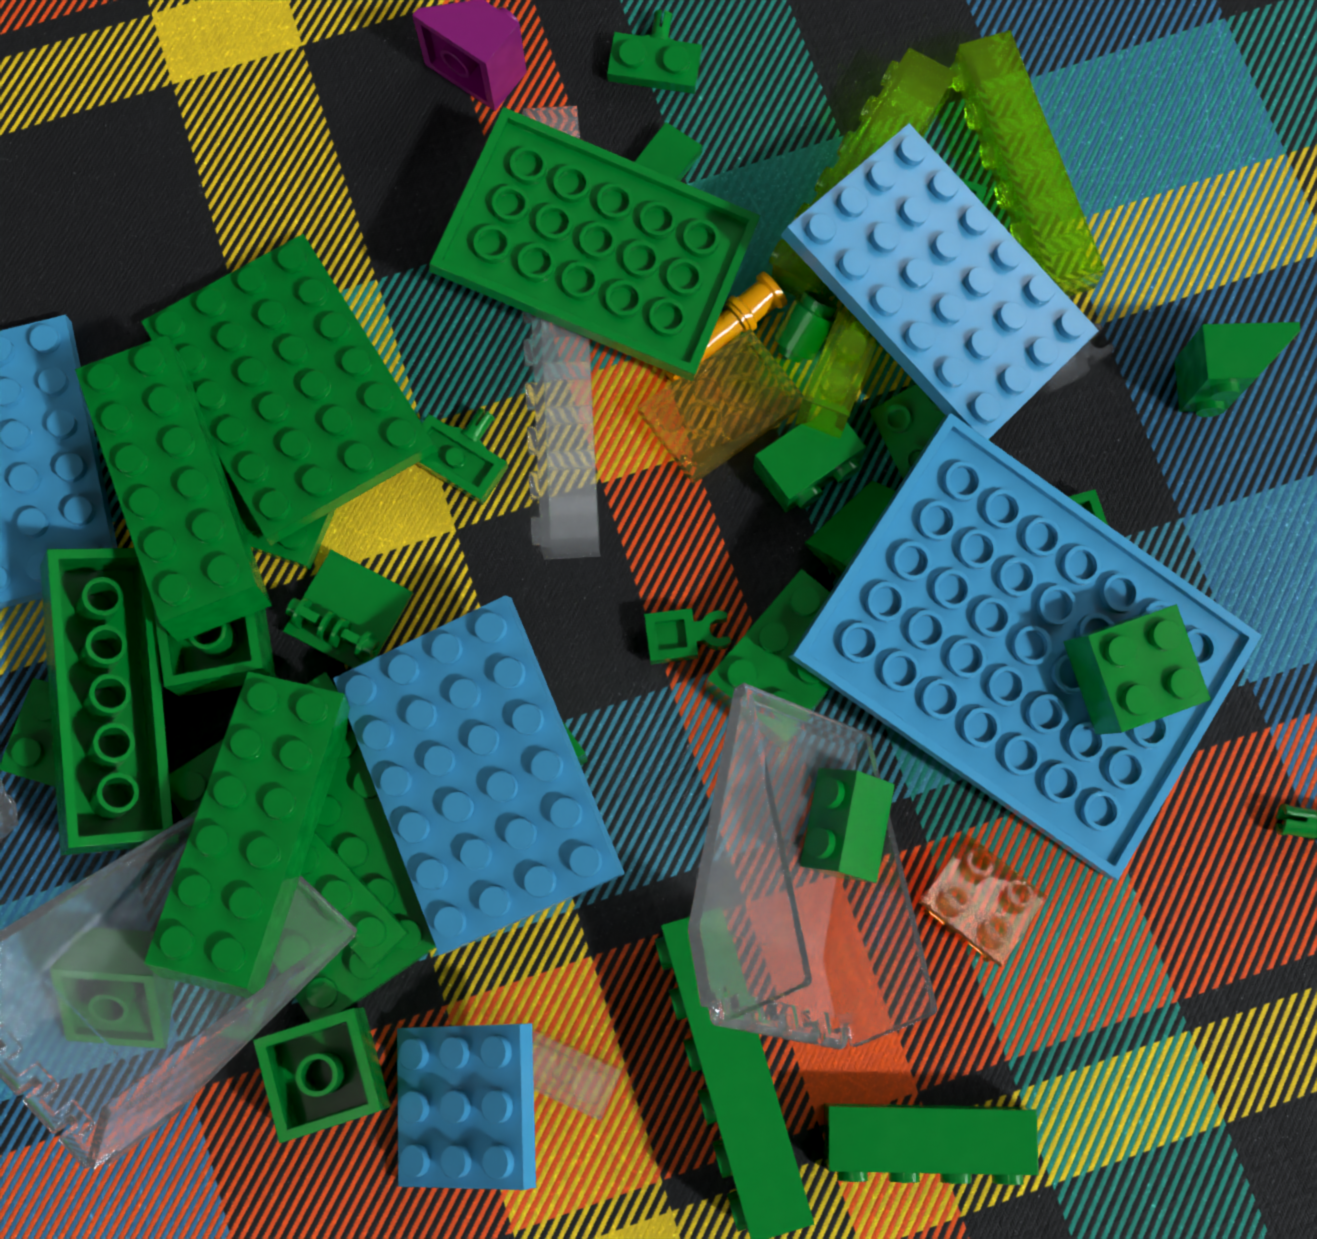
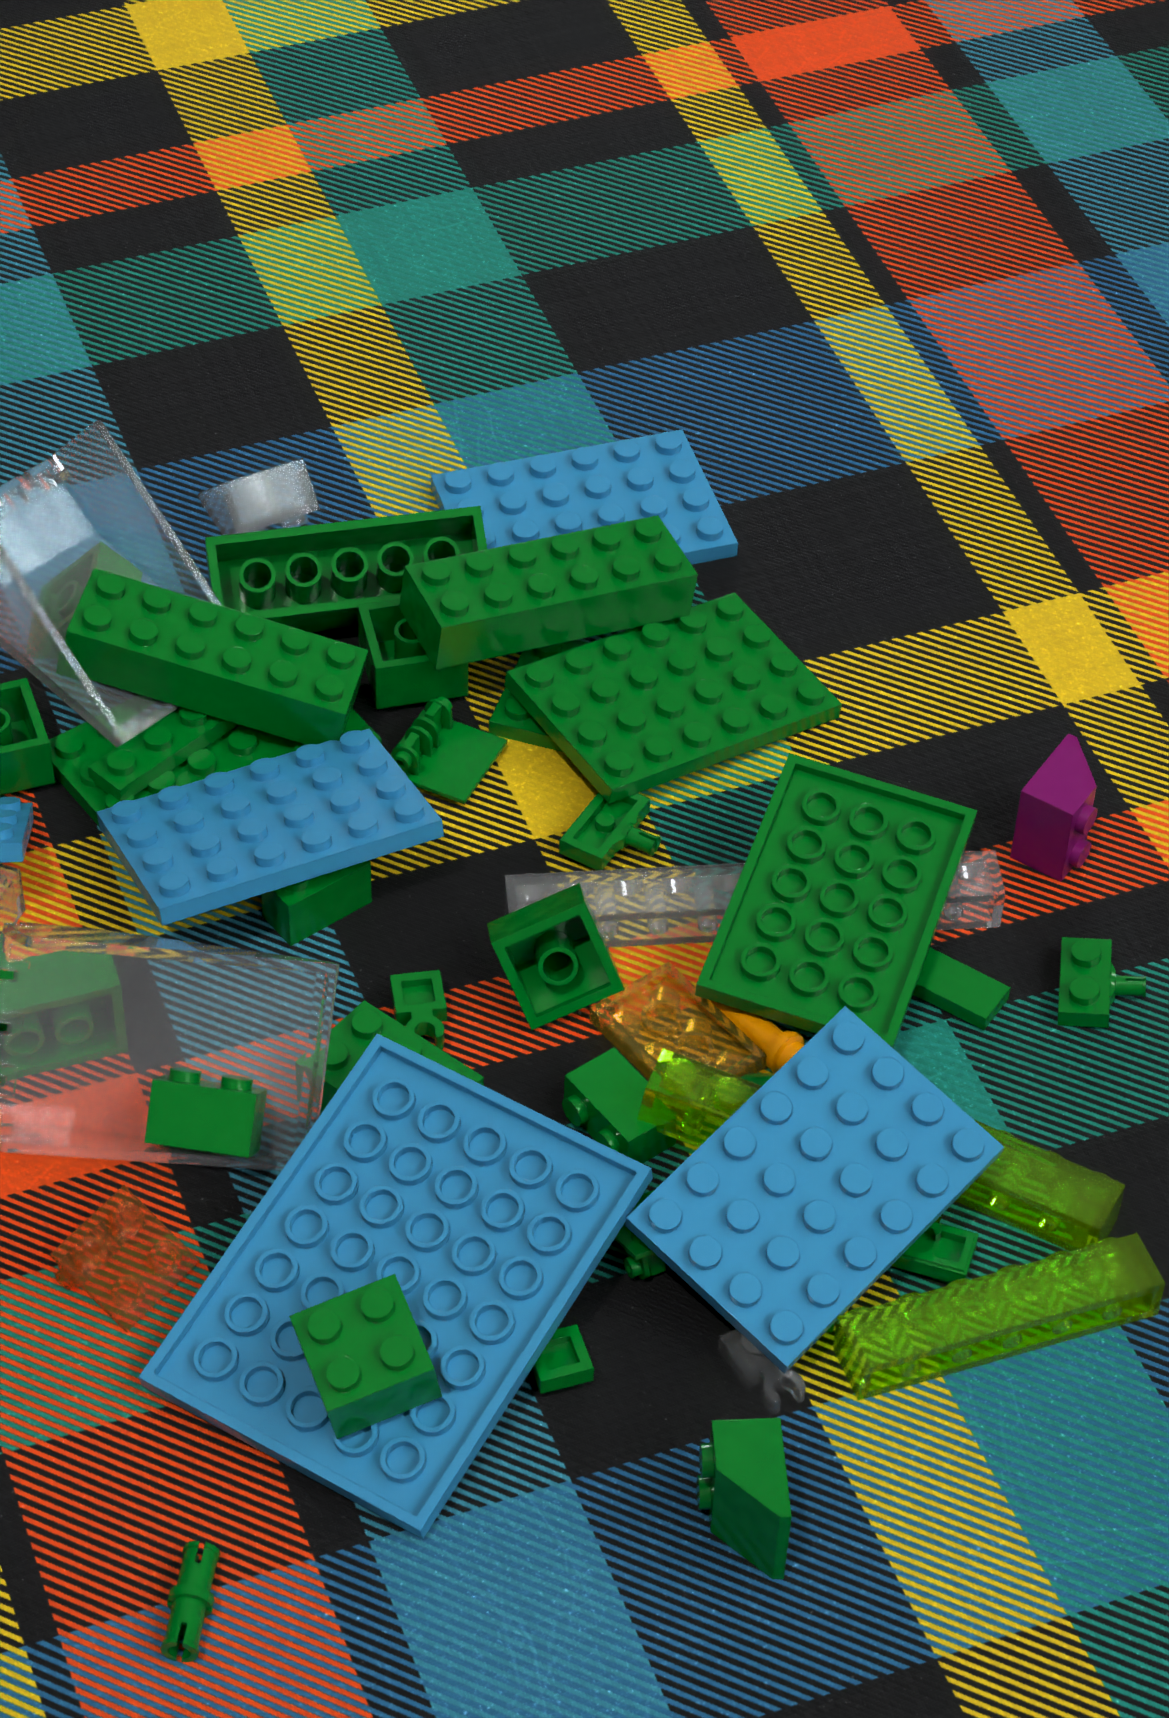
camera: 85 degrees right, 30 degrees down
(641, 504) = (555, 956): none -> green slope

